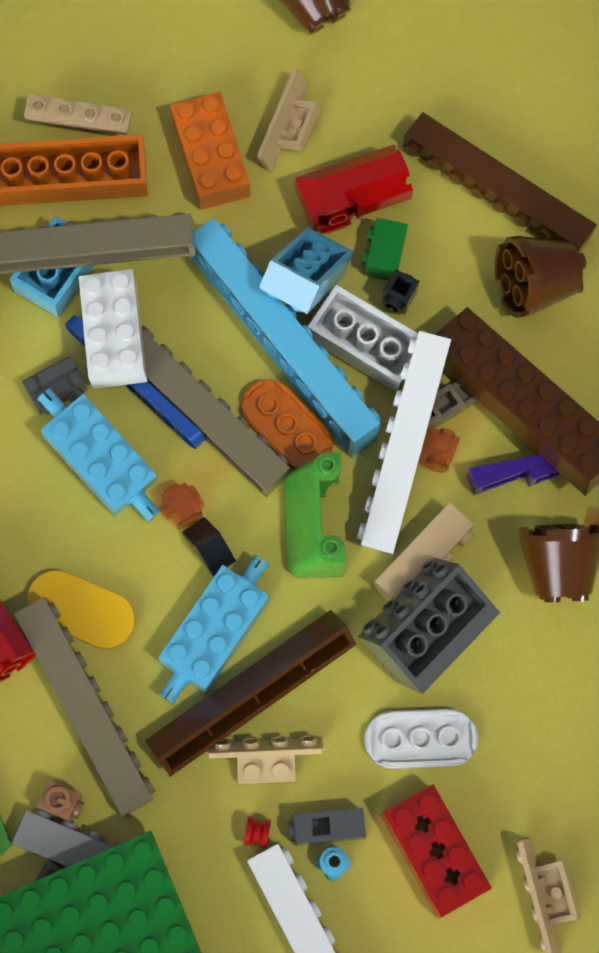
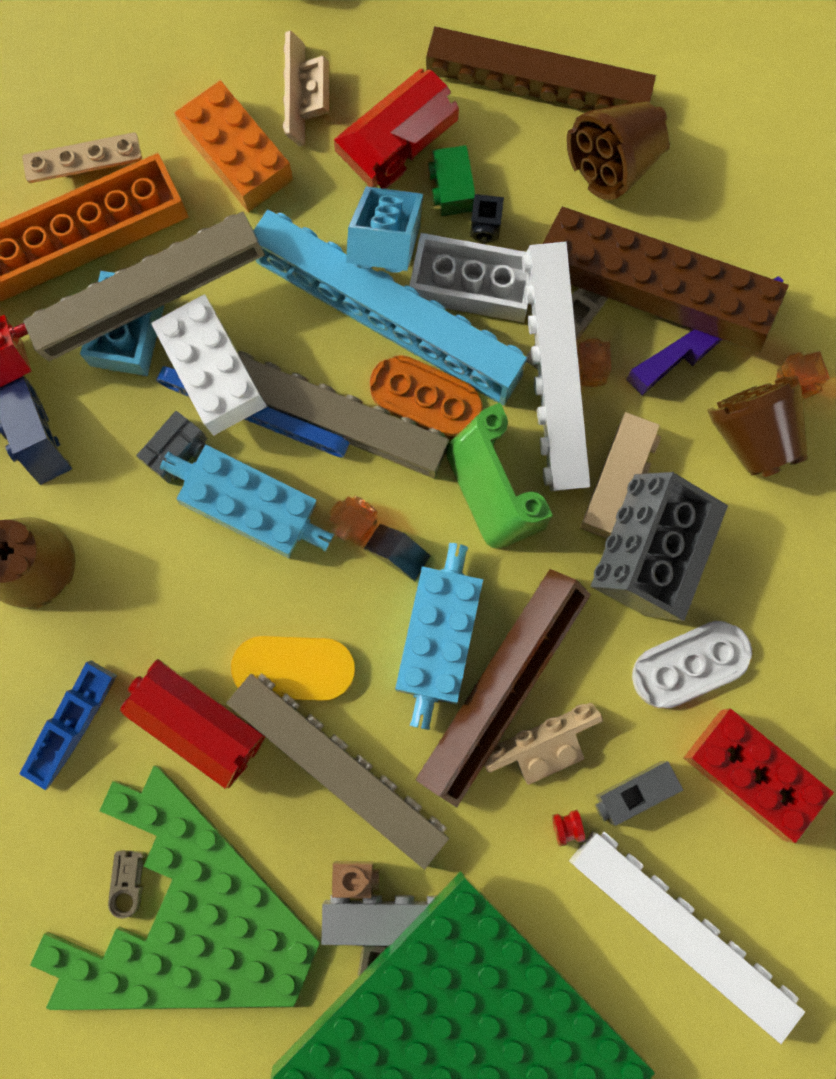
camera: 15 degrees left, 5 degrees up
(333, 872) = (648, 830): medium azure brick -> none

